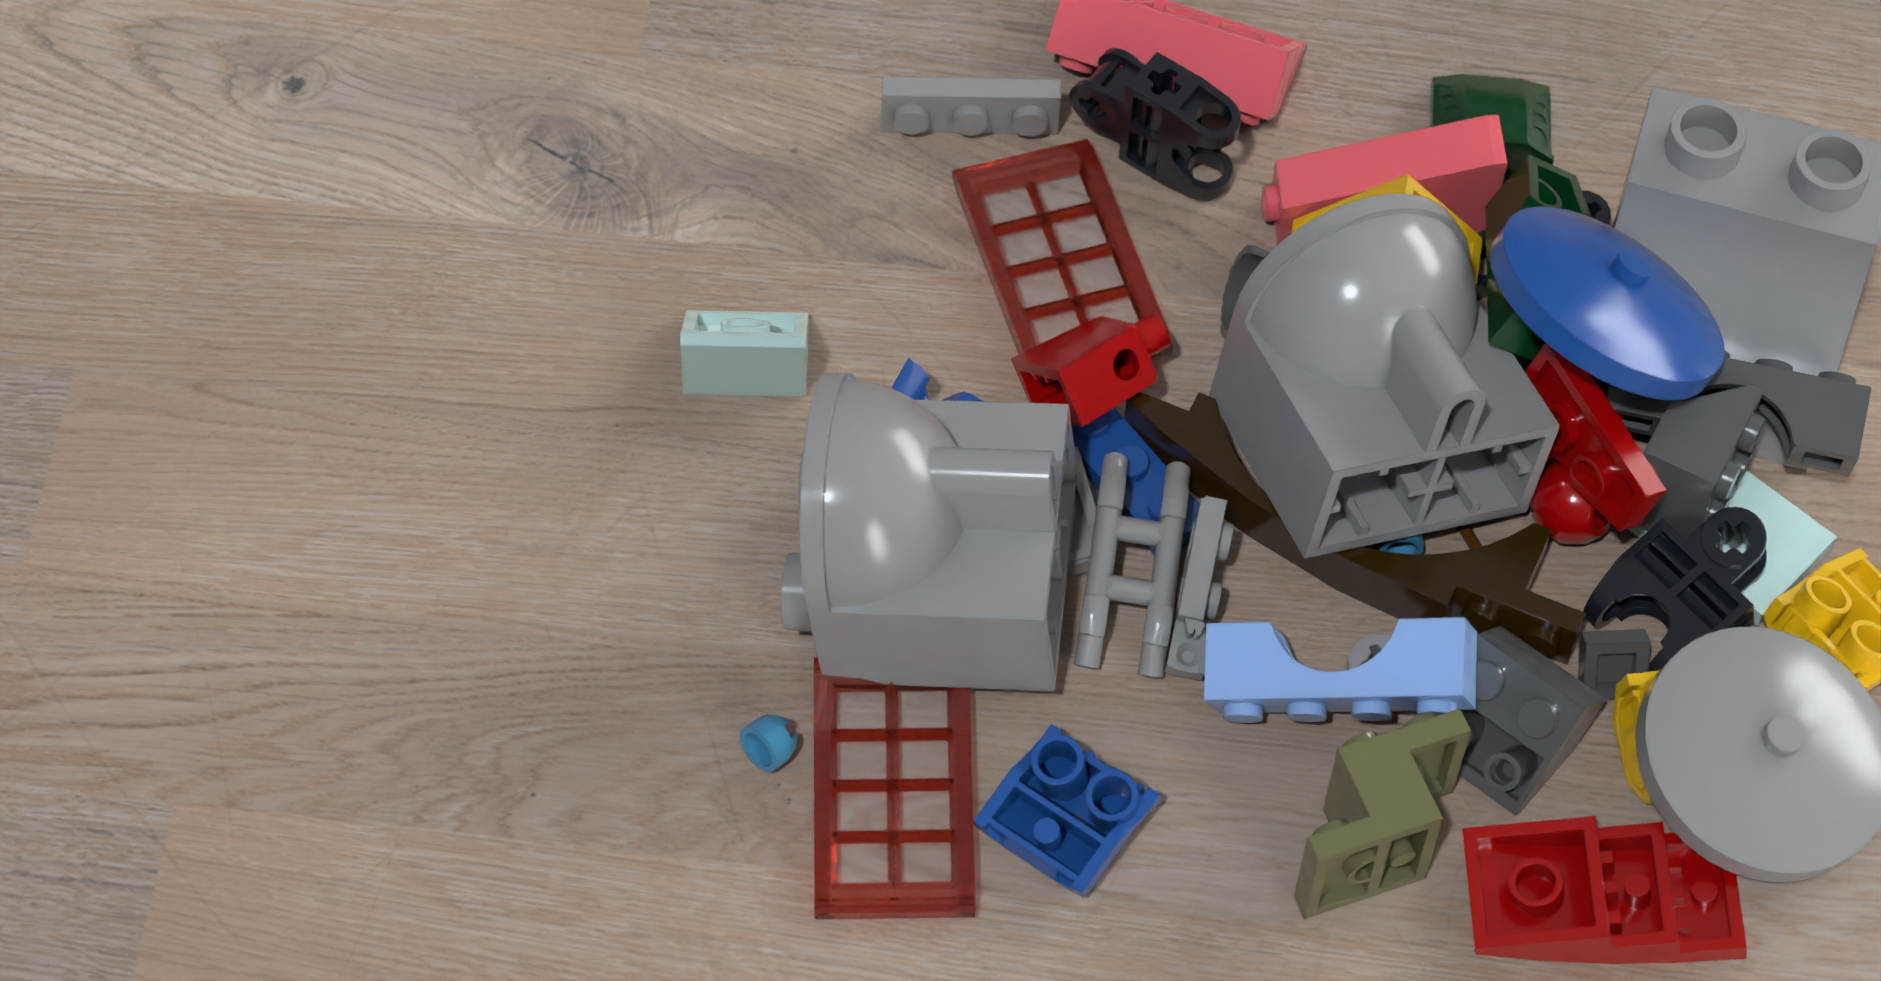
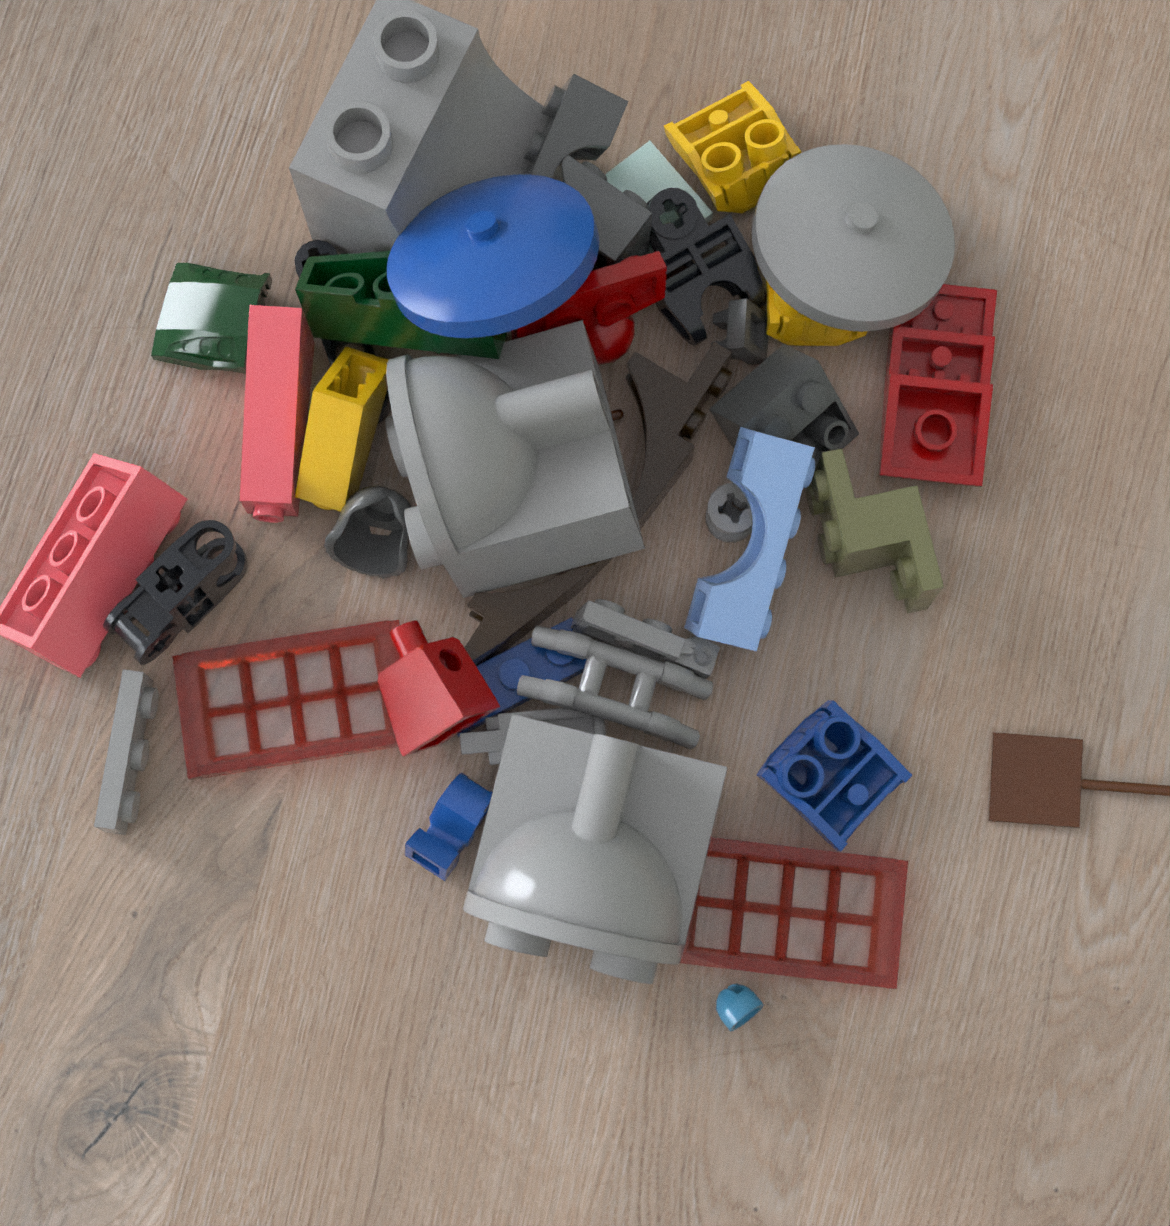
camera: 80 degrees left, 20 degrees up
(744, 353) = (346, 982): light aqua slope -> none

